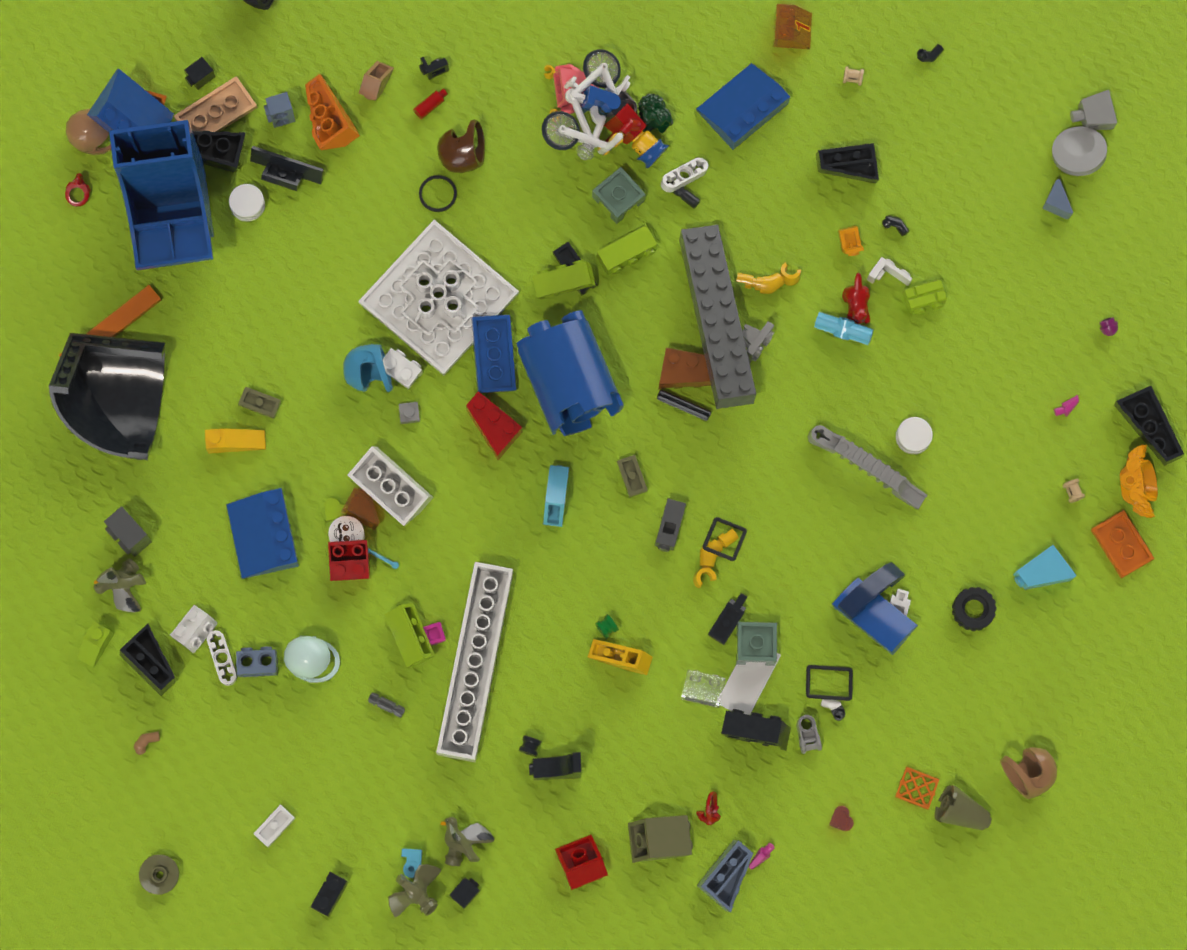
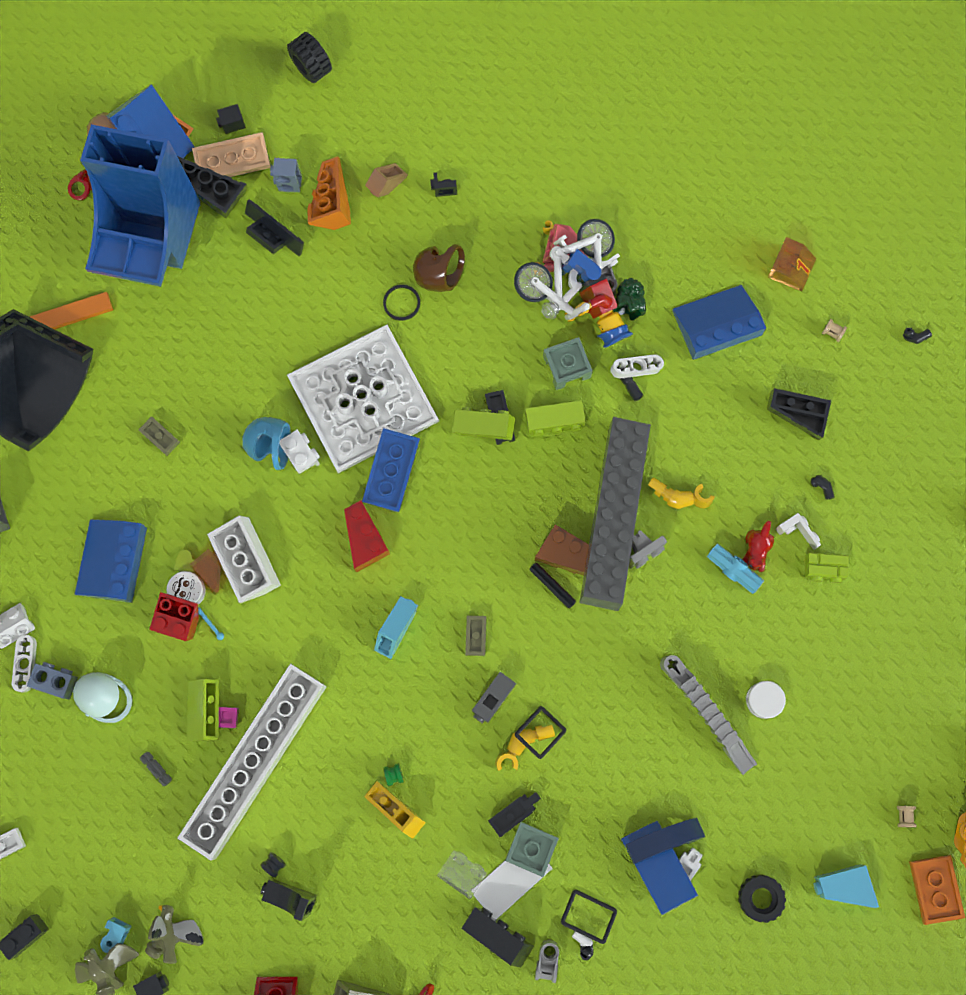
camera: 30 degrees right, 0 degrees up
(234, 440) = (121, 462): yellow slope -> none
(247, 202) = (224, 249): white head -> none
(409, 412) = (292, 496): light grey plate -> none
(430, 103) = (426, 218): red cylinder -> none
(568, 373) = (450, 515): blue brick -> none
(850, 241) = (773, 486): light orange bracket -> none
(1067, 407) = (929, 728): dark pink bar -> none

